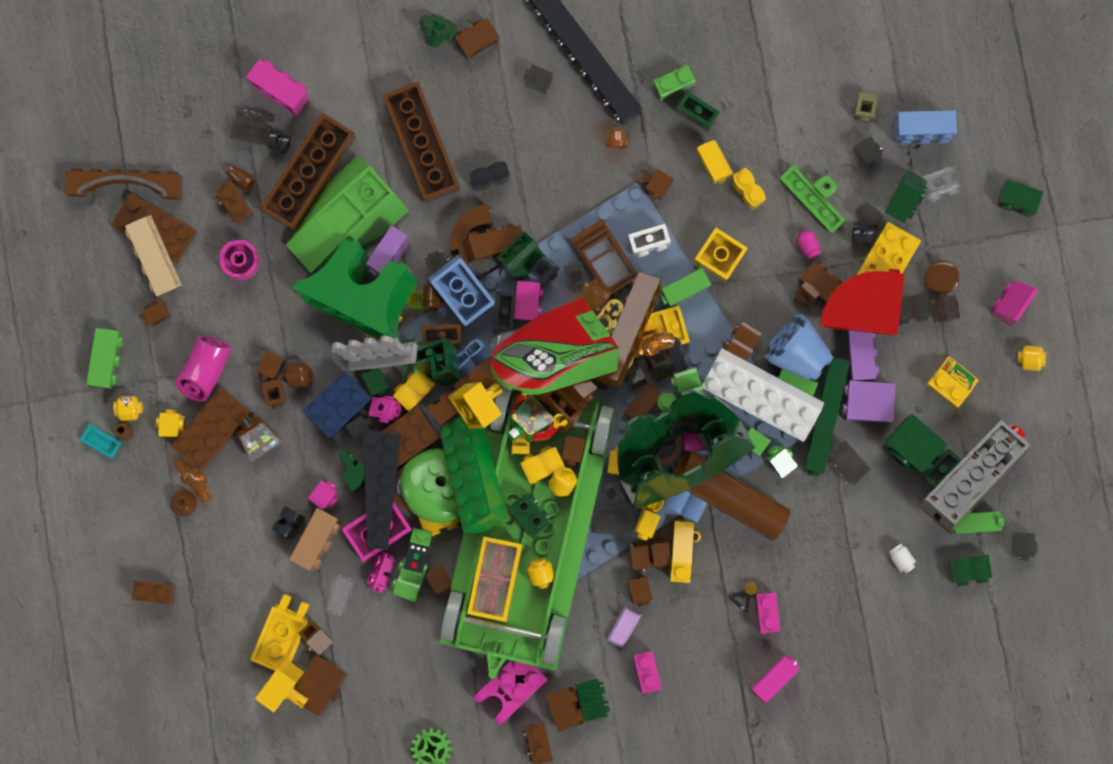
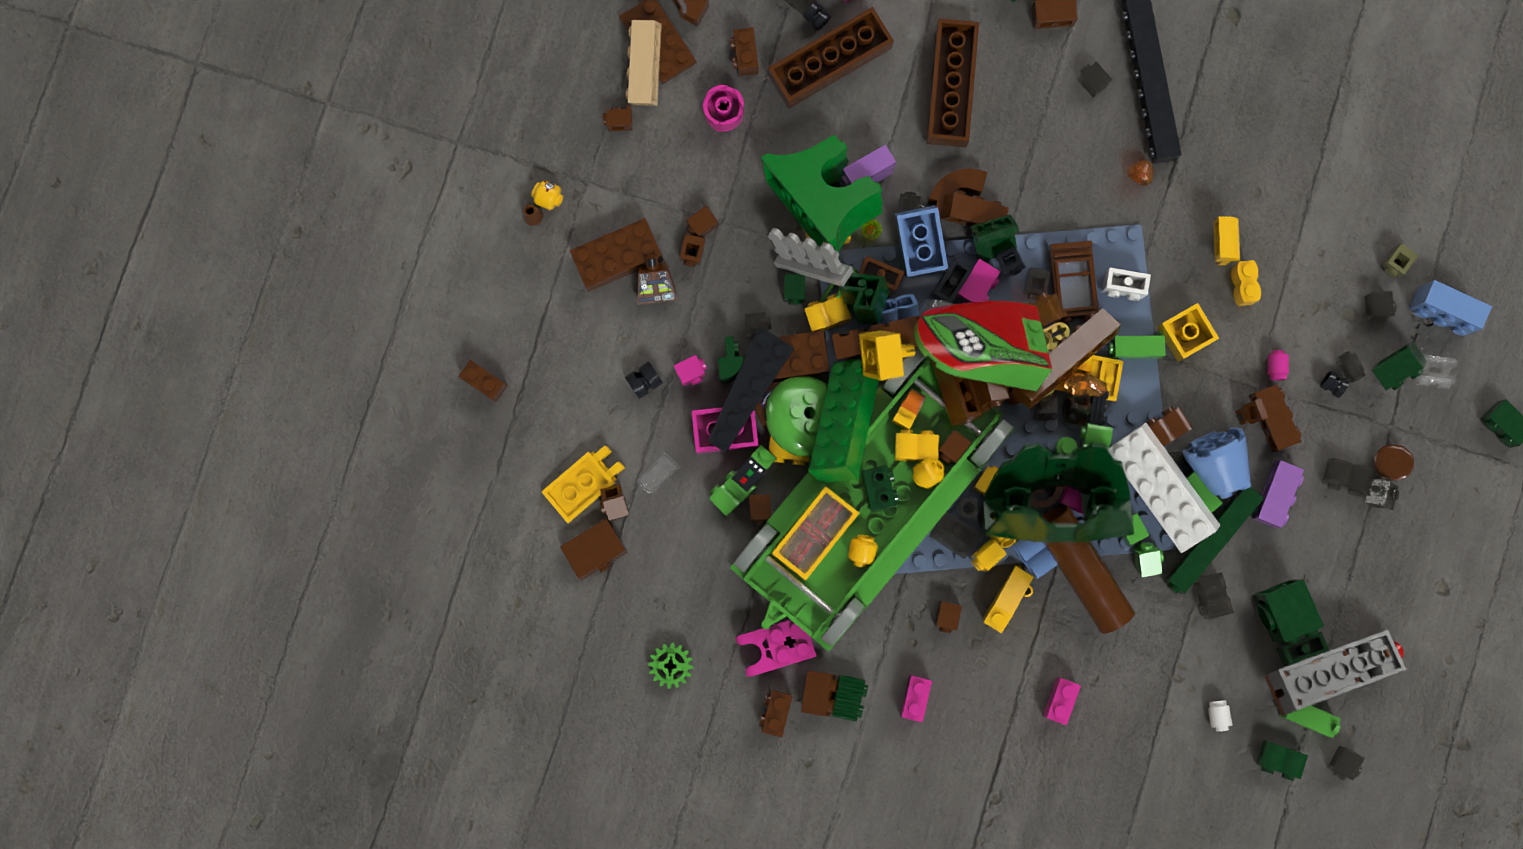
camera: 30 degrees right, 0 degrees up
(100, 441) = (506, 213): teal tile -> none
(104, 358) = (549, 138): bright green brick -> none
(170, 424) = (579, 230): yellow brick -> none
(183, 503) = (554, 311): reddish brown brick -> none
(194, 478) = (576, 293): clear orange arm -> none
(203, 368) = (637, 192): dark pink brick -> none
(241, 178) = (764, 33): reddish brown cone -> none
(282, 687) = (558, 532): yellow brick -> none
(298, 375) = (724, 244): reddish brown head -> none
(315, 540) = (661, 409): medium nougat brick -> none
(338, 405) = (747, 291): dark blue brick -> none
(350, 207) = (856, 109): bright green wedge -> none
(376, 580) = (713, 464): dark pink hinge -> none
(385, 409) = (790, 318): dark pink brick -> none
(431, 298) = (887, 235): reddish brown brick -> none
(484, 177) = (1006, 148): black brick -> none
(532, 420) = (929, 397): torso -> none
(623, 627) = (914, 643): lavender tile -> none
(643, 402) = (1044, 435): reddish brown tile -> none
(650, 553) = (975, 585): reddish brown piece -> none
(657, 184) = (1159, 235): reddish brown brick -> none
(673, 83) = (1223, 146): bright green brick -> none
(697, 111) = (1233, 184): dark green brick -> none
(750, 589) = (1055, 668): black piece -> none
(774, 678) = (1037, 769): dark pink brick -> none
(814, 197) = (1306, 323): bright green plate -> none
(866, 303) = (1310, 450): red brick -> none
(869, 402) = (1262, 547): medium lavender brick -> none
(891, 250) = (1344, 421): yellow plate -> none
(952, 383) = (1351, 569): yellow slope -> none
(1013, 302) = (1454, 521): dark pink slope -> none
(1032, 358) = (1444, 585): yellow head -> none

